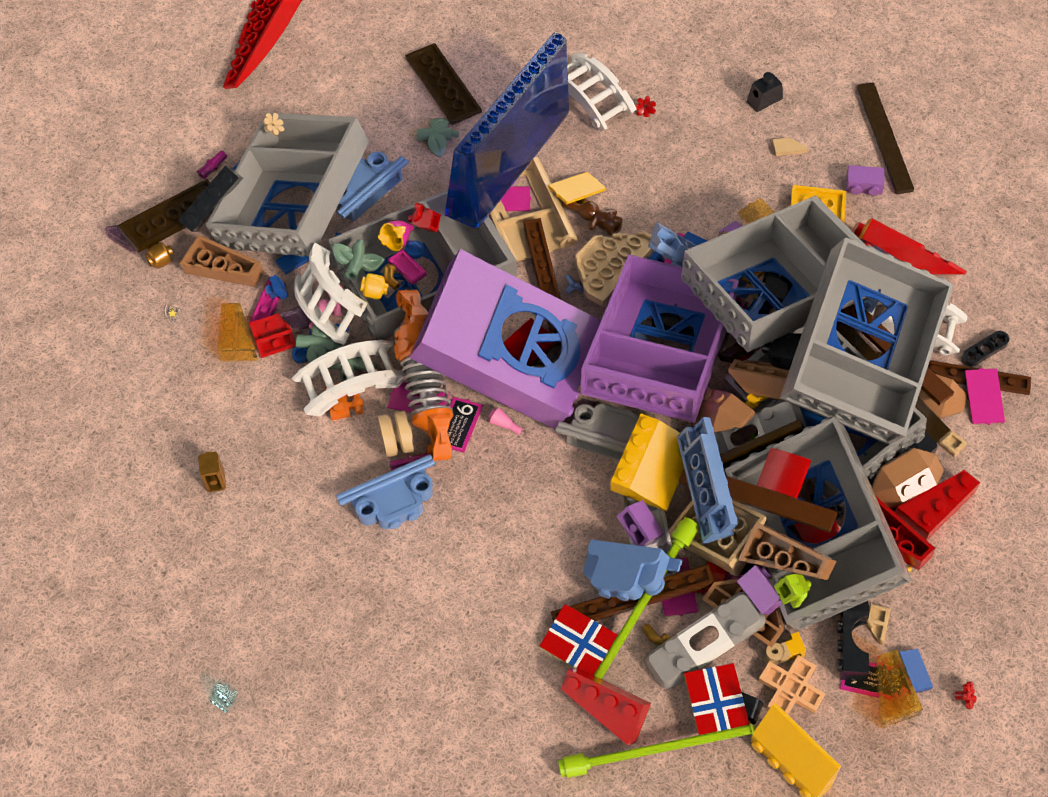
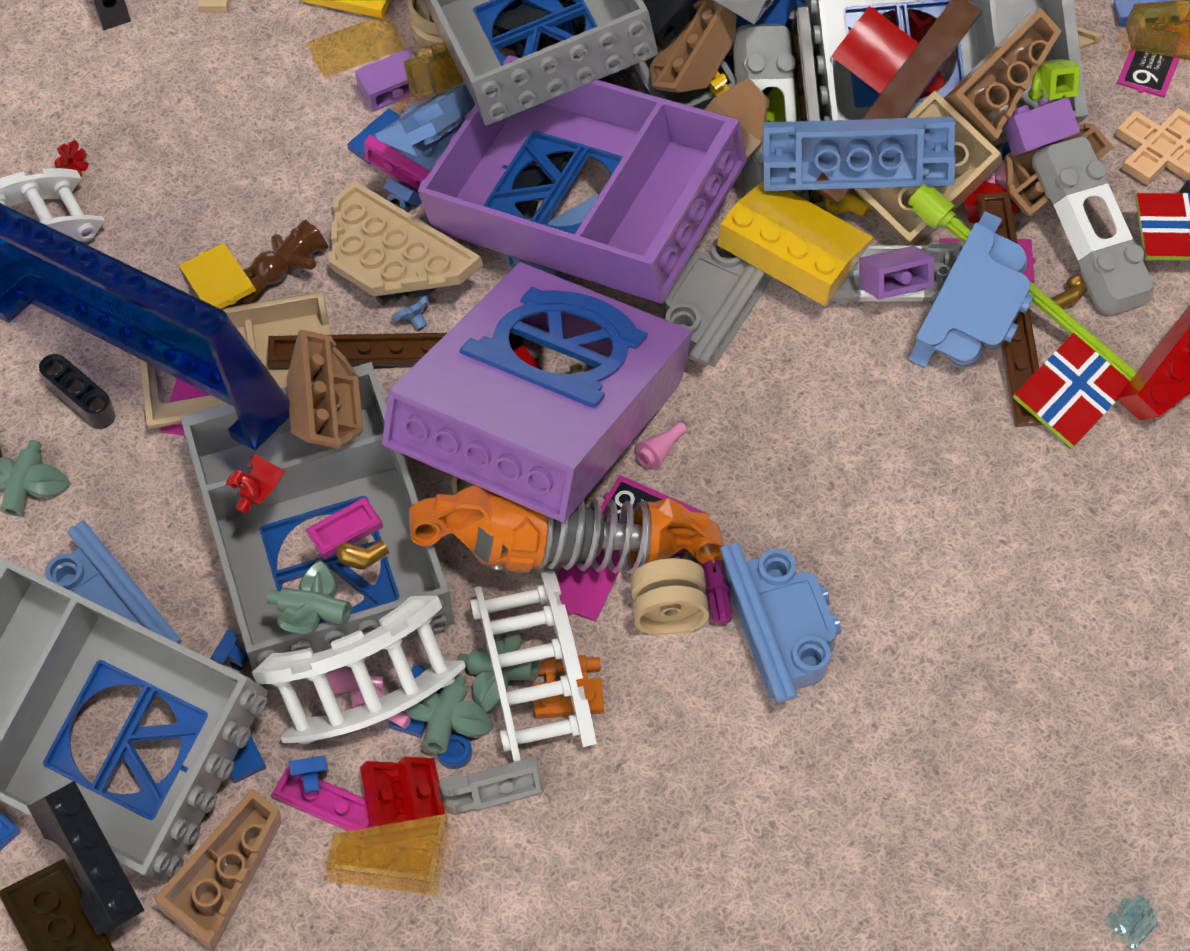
camera: 80 degrees left, 0 degrees up
(212, 471) = (694, 906): pearl gold brick -> none
(279, 373) = (492, 786): none -> light grey hinge
(296, 318) = (376, 742): clear purple slope -> none
(373, 286) = (380, 579): yellow head -> none
(395, 234) = (278, 531): yellow hat -> none
(414, 249) = (309, 510): blue tile -> none
(482, 238) = (323, 392): none -> medium nougat wedge
(786, 650) = (1111, 130): leg -> none
(853, 661) = (1127, 70): black arch -> none

